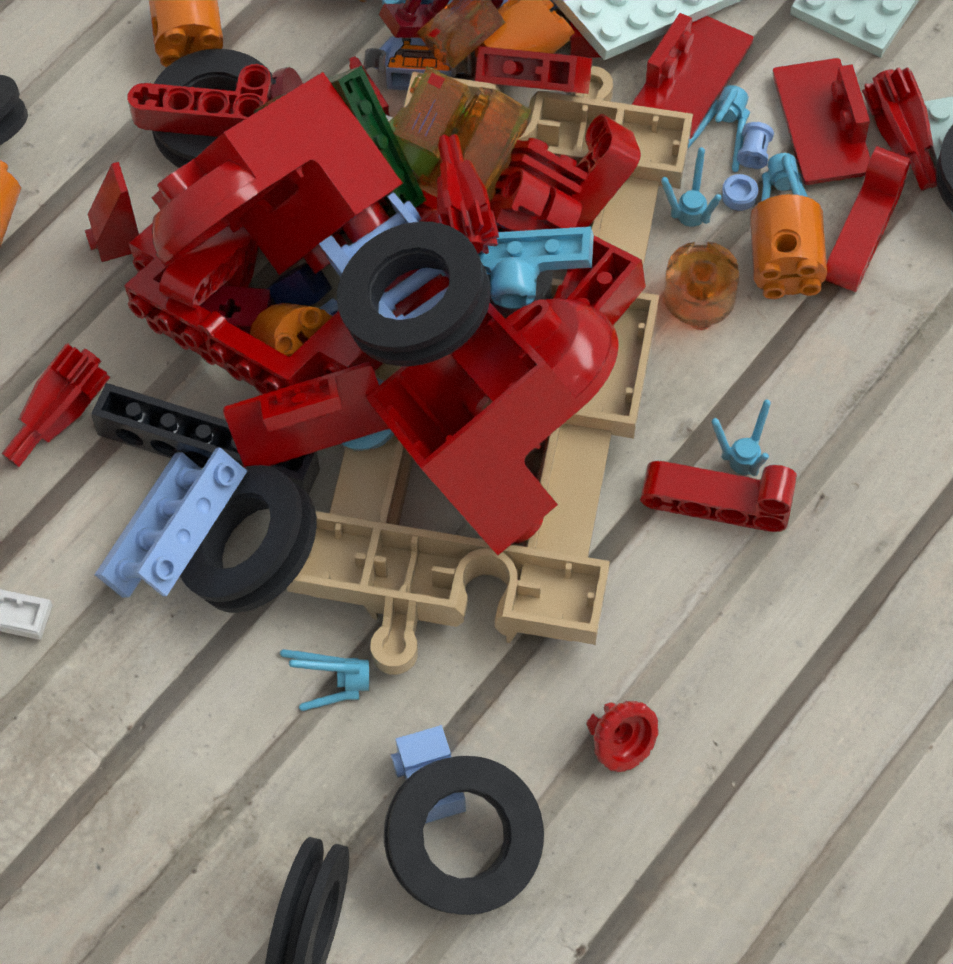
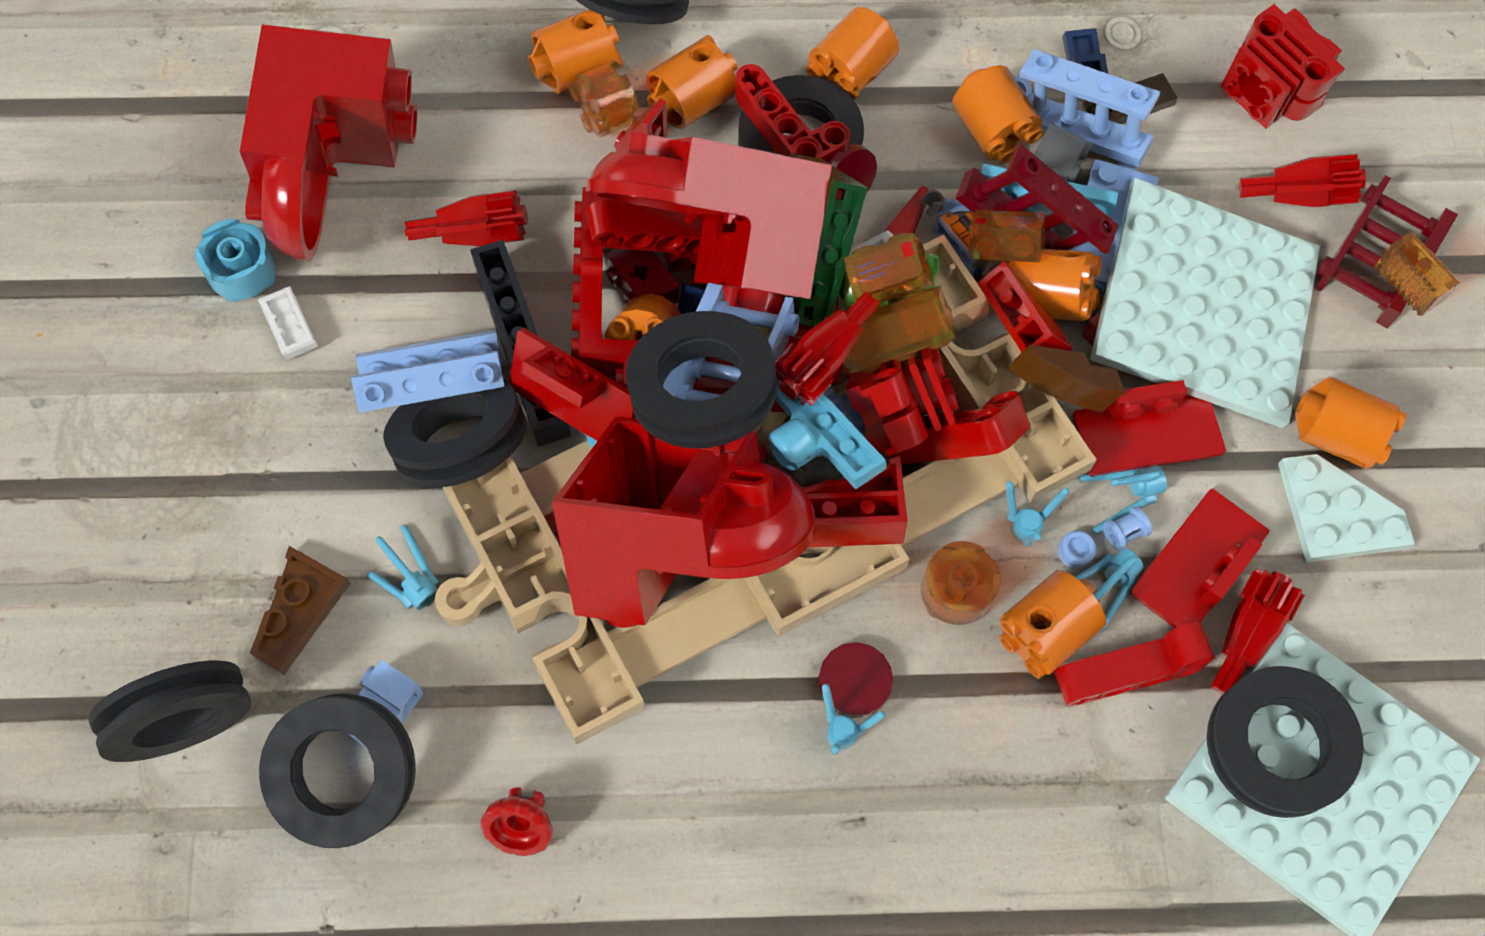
camera: 45 degrees right, 5 degrees up
(45, 220) = (605, 99): none -> clear orange brick
(91, 140) = (693, 82): none -> orange cylinder
(283, 780) = (299, 607): none -> reddish brown wing
(612, 79) = (1068, 377): none -> reddish brown slope
(700, 405) = (857, 679): none -> dark red tile
(721, 495) = (804, 771): red beam -> none

